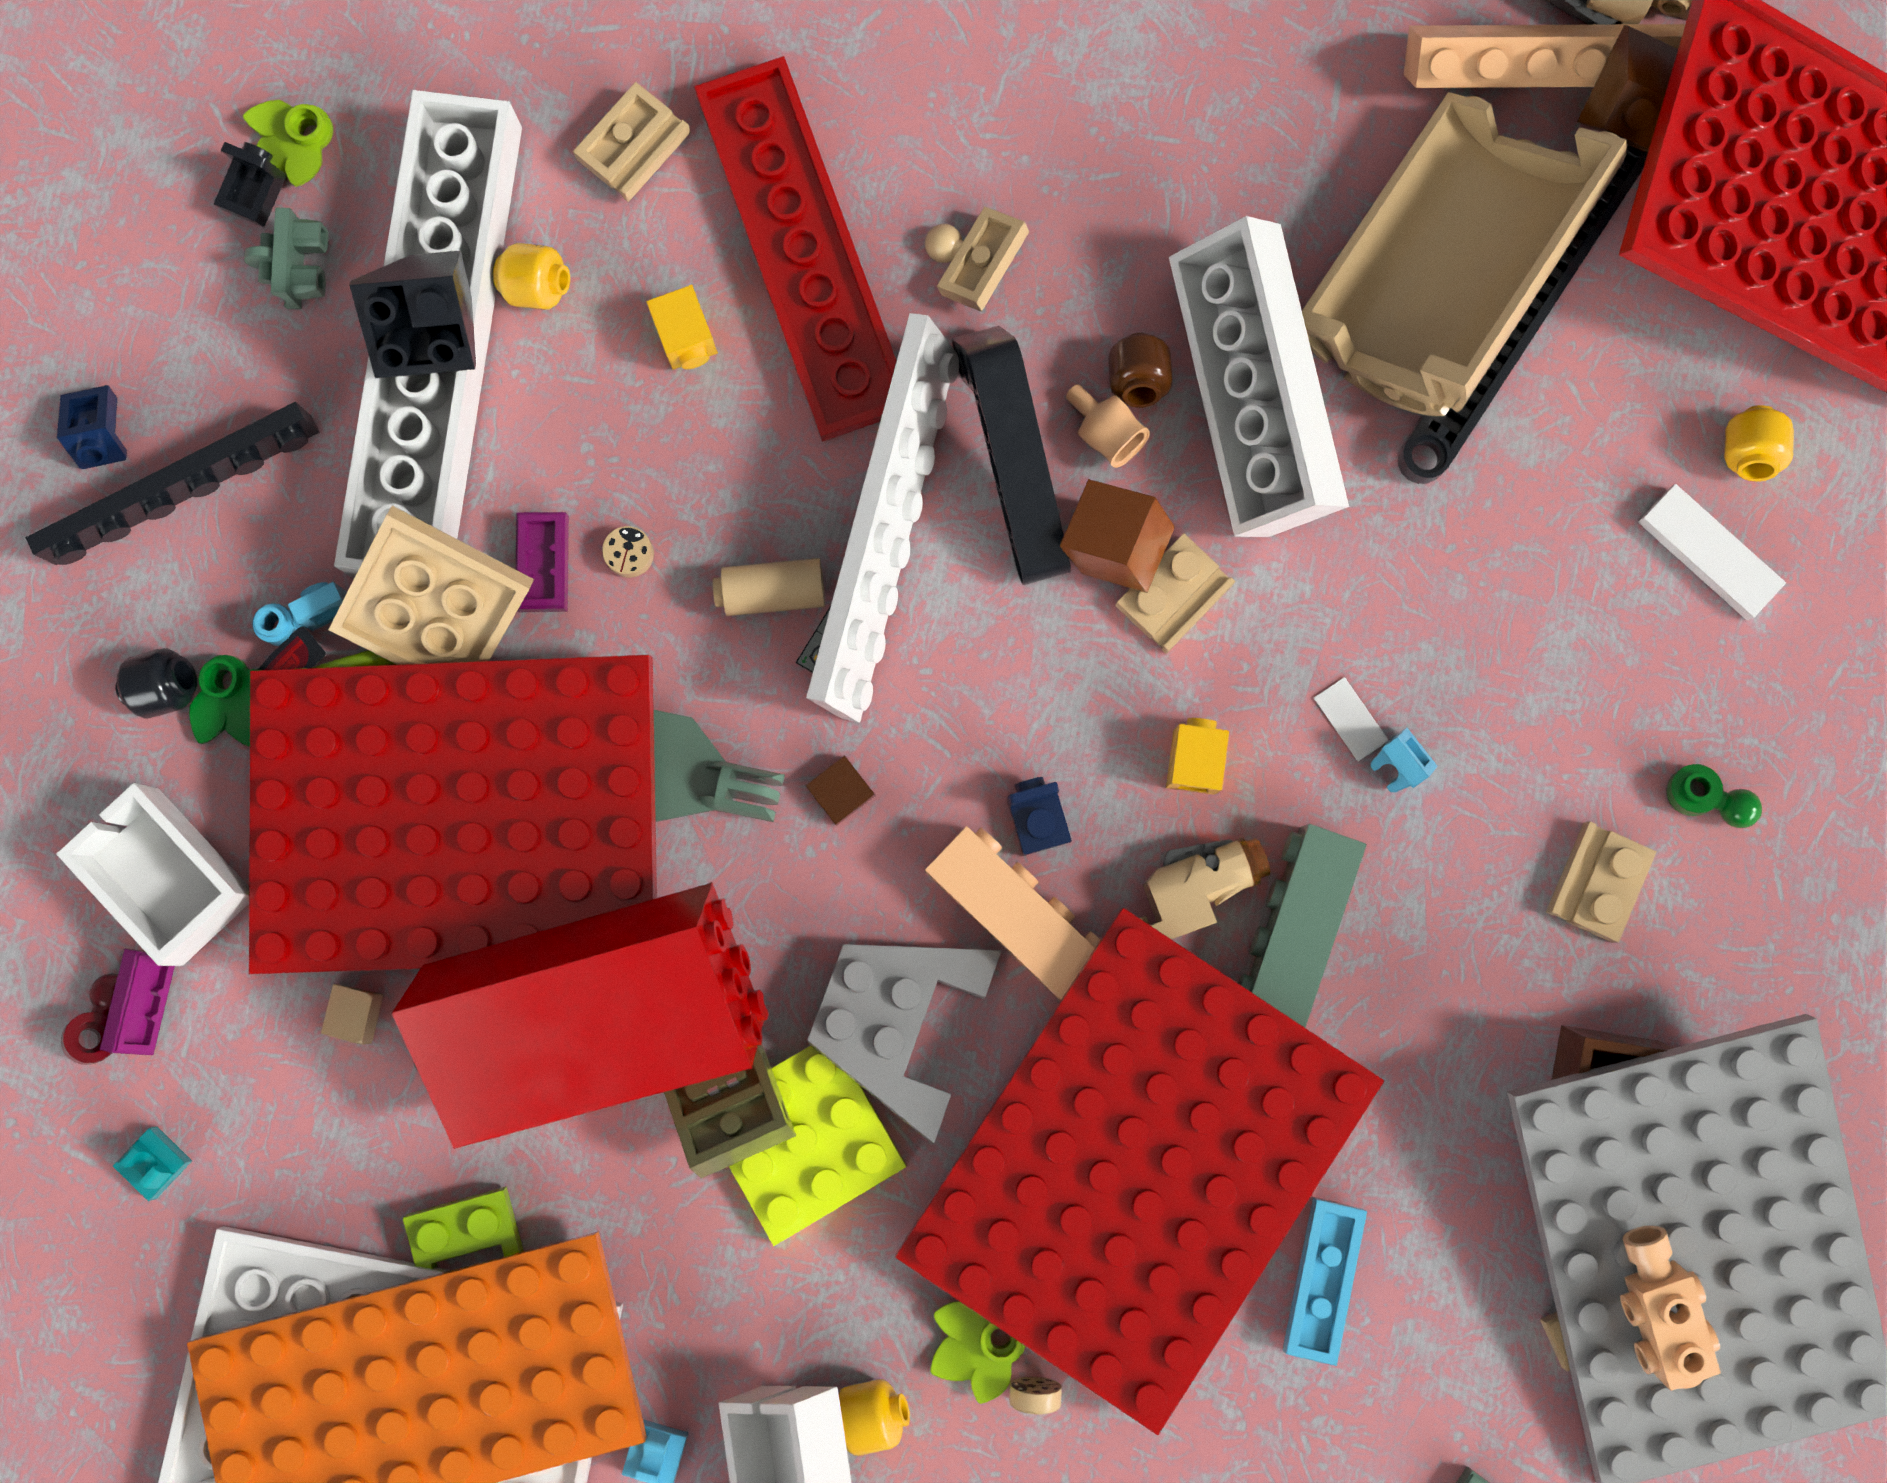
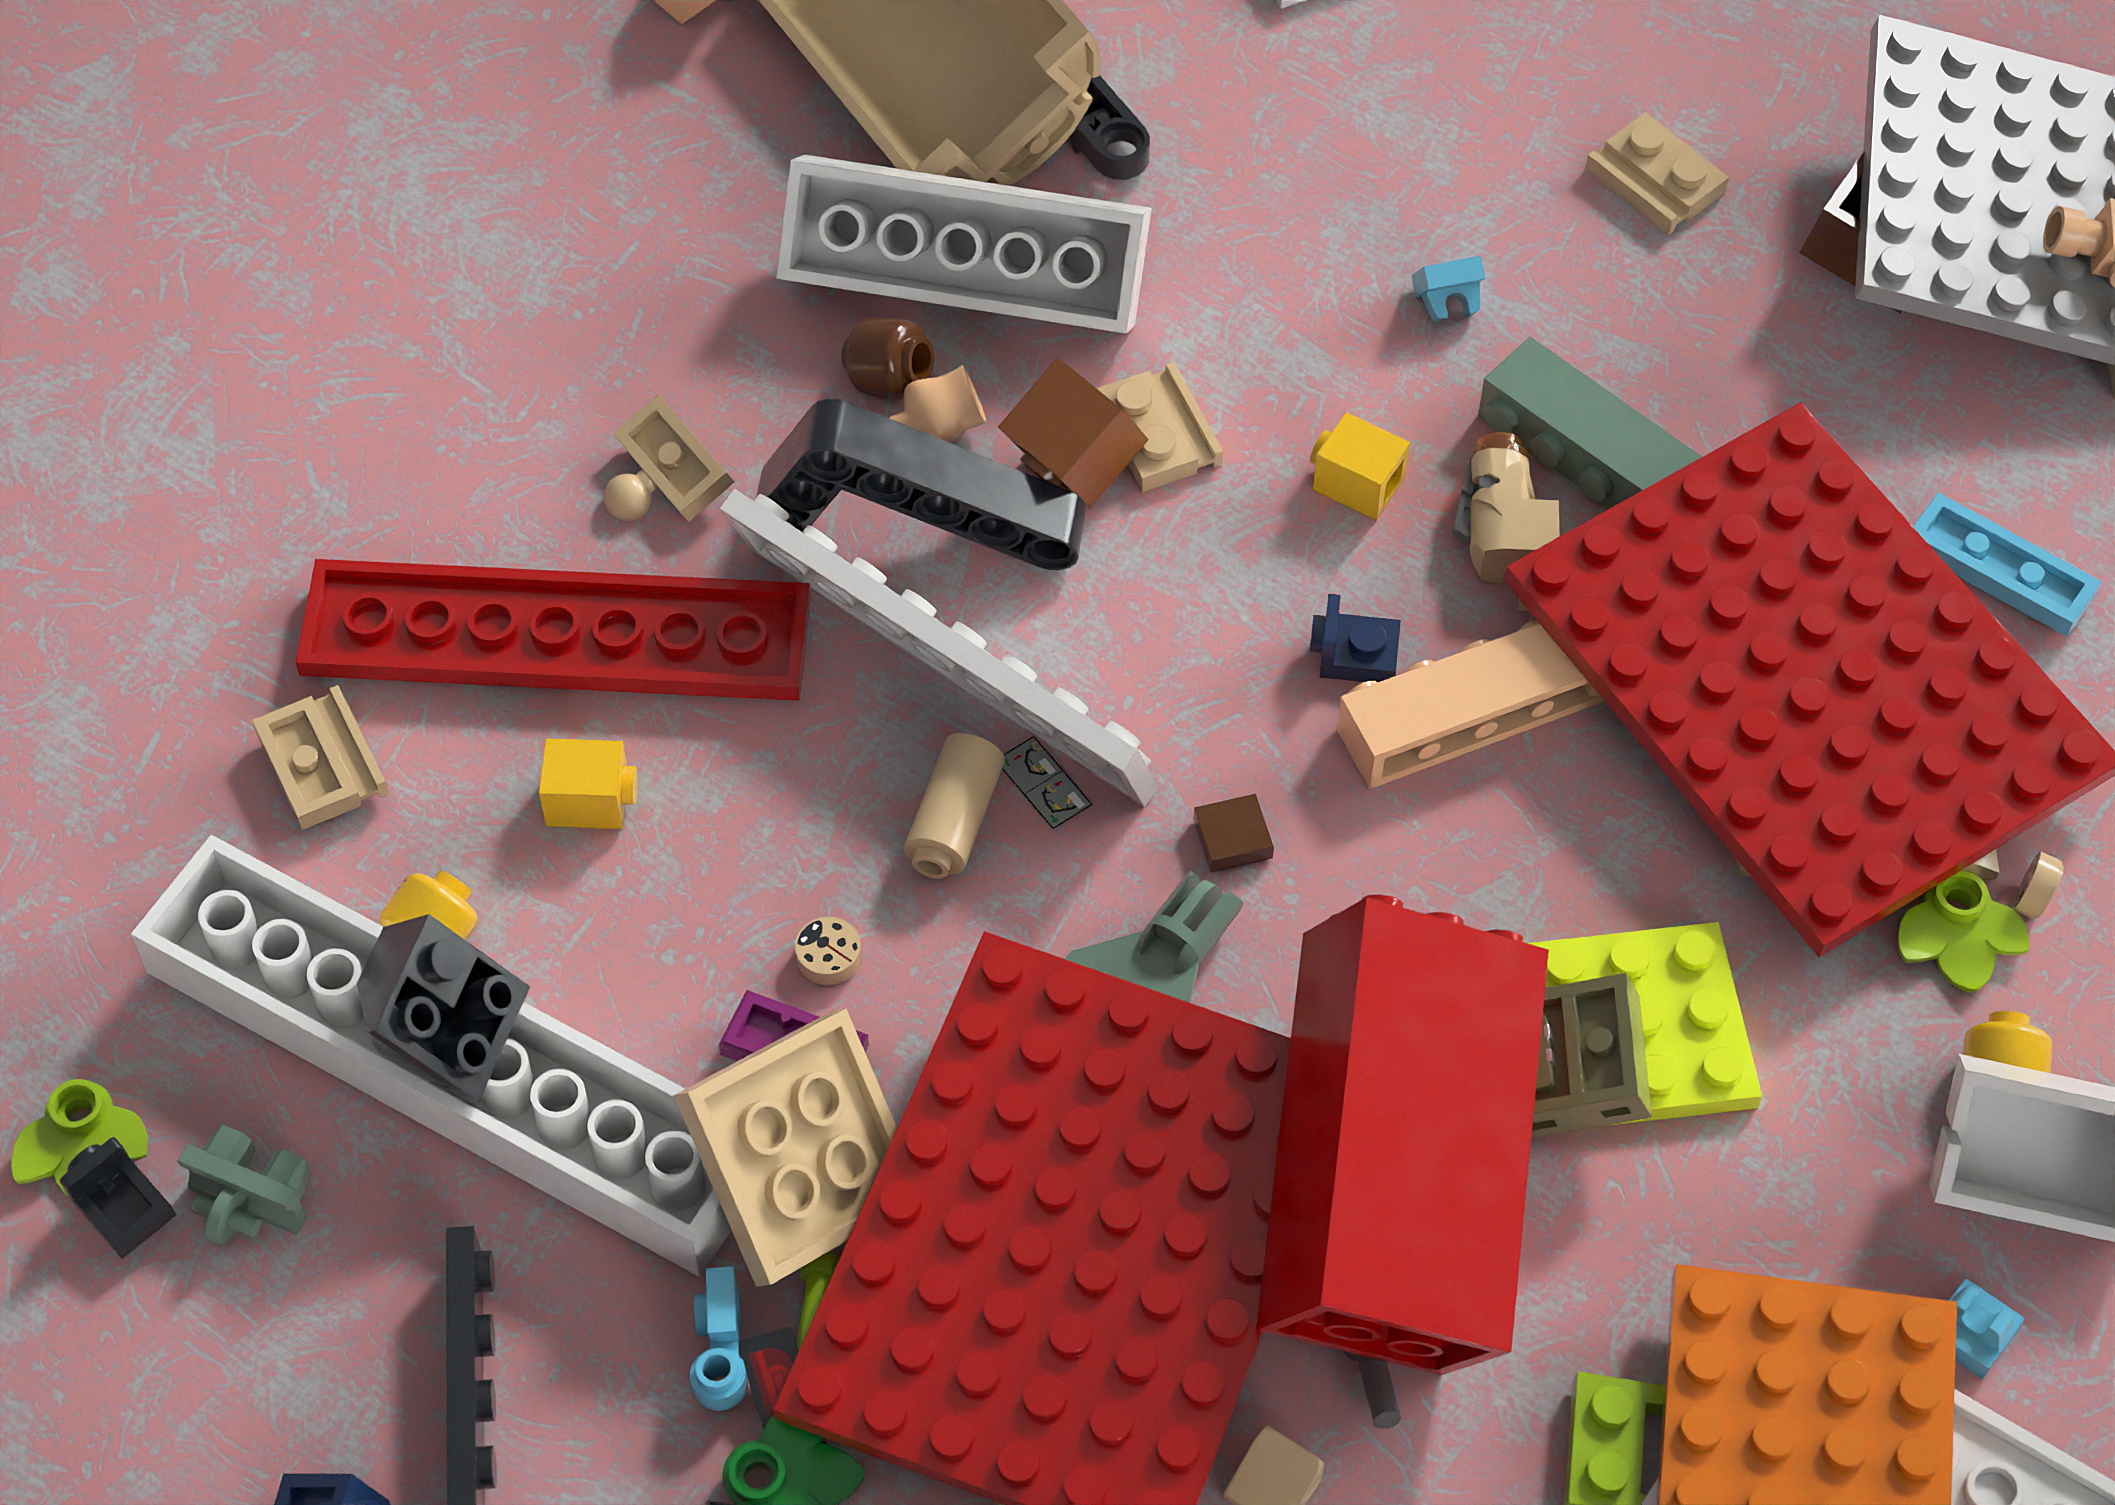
camera: 65 degrees left, 25 degrees down
(876, 1014) = (1525, 879): light grey wing -> none
(1351, 719) = (1377, 324): white sticker -> none
(1737, 807) = (1627, 31): green plate -> none

